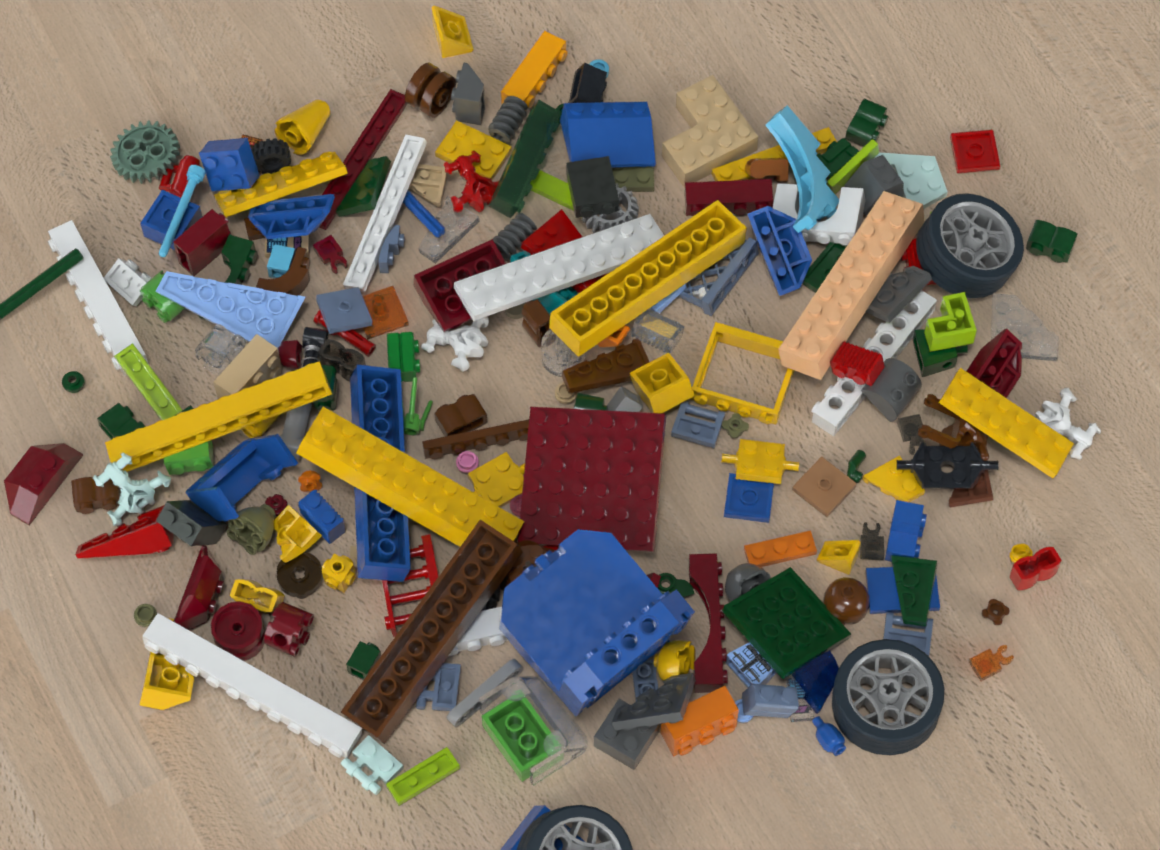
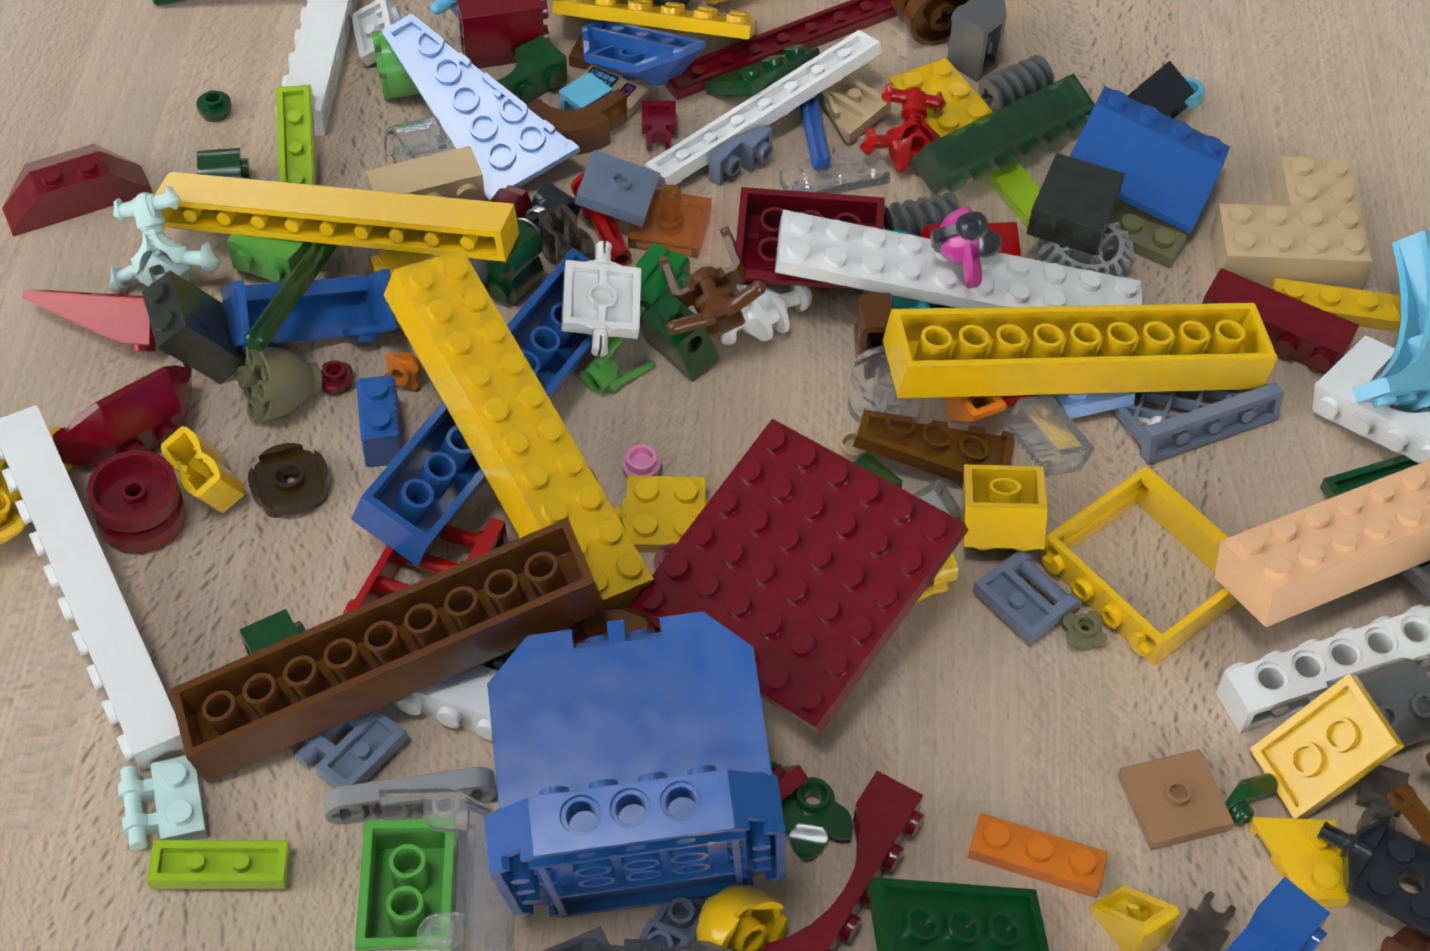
camera: 30 degrees right, 10 degrees down
(90, 497) = (108, 239): reddish brown brick -> none
(144, 614) = (51, 411): olive plate -> none
(232, 478) = (288, 296): none -> dark green axle
(288, 629) = (202, 535): dark red brick -> none
(294, 534) = (323, 422): yellow slope -> none
(339, 572) = (335, 504): yellow brick -> none
(394, 386) = (601, 299): none -> white plate
(438, 381) = (675, 347): none -> dark green torso
(448, 351) = (713, 294): none -> reddish brown piece
(461, 416) = (675, 400): reddish brown brick -> none
(476, 439) = (665, 435): reddish brown plate -> none
(536, 69) = (1100, 47): light orange brick -> none
(557, 251) = (965, 239): none -> cap
(743, 579) = (943, 859): dark grey cylinder -> none
(748, 500) = (1038, 747): blue tile -> none
(760, 461) = (1091, 702): yellow plate -> none
(764, 167) = (1363, 309): dark orange leg -> none
(781, 248) = (1317, 416): blue wedge -> none
(857, 364) = (1343, 634): red brick -> none
(878, 424) = (1327, 747): none -> yellow plate

